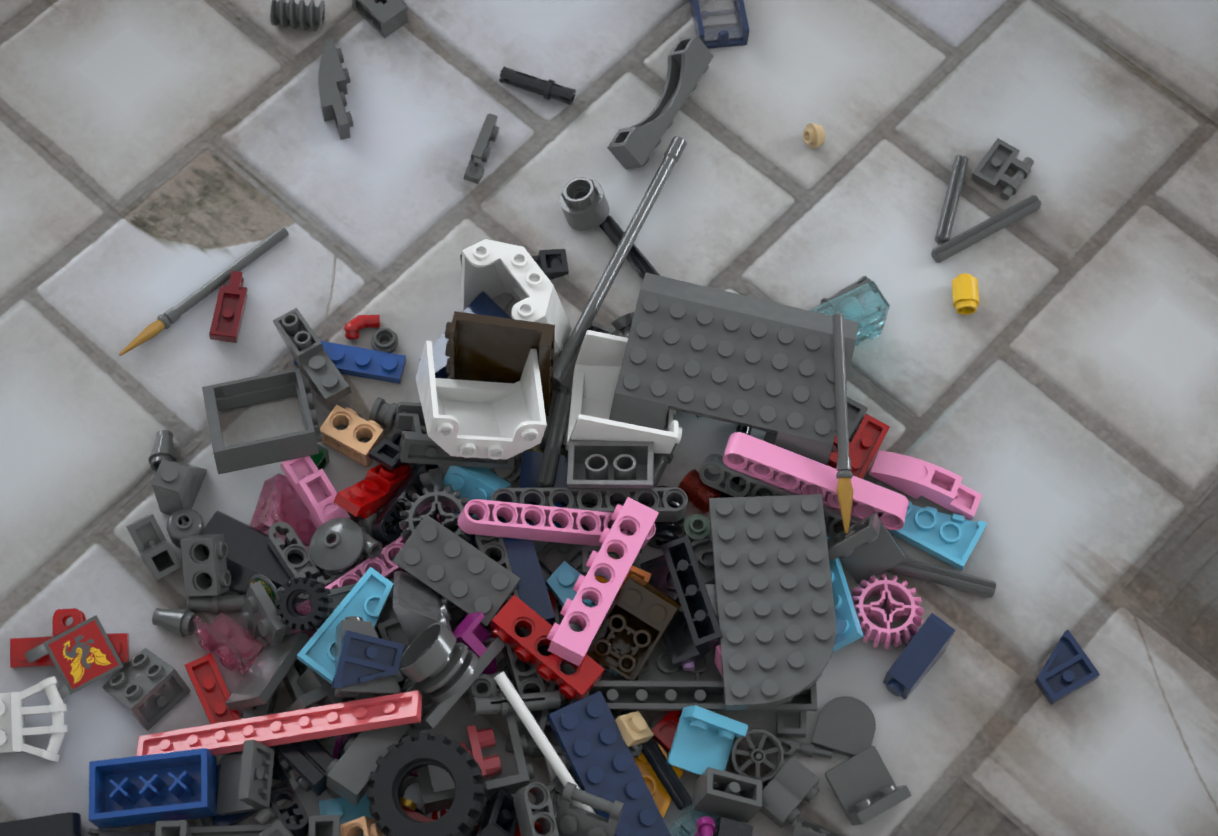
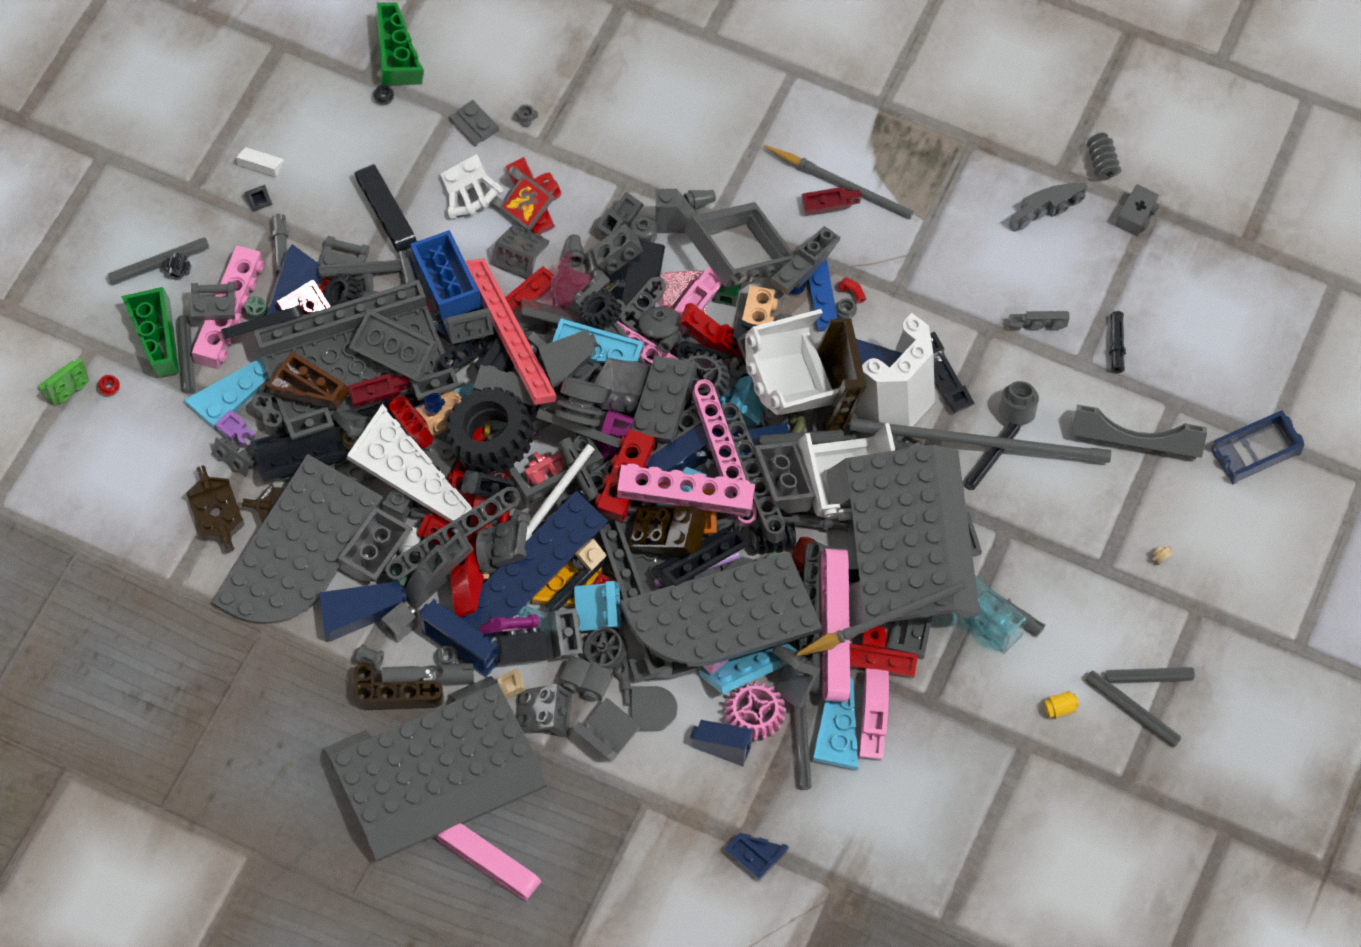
camera: 75 degrees right, 0 degrees up
(365, 659) = (564, 353): dark blue wing -> none
(996, 163) = (1199, 701): dark grey plate -> none

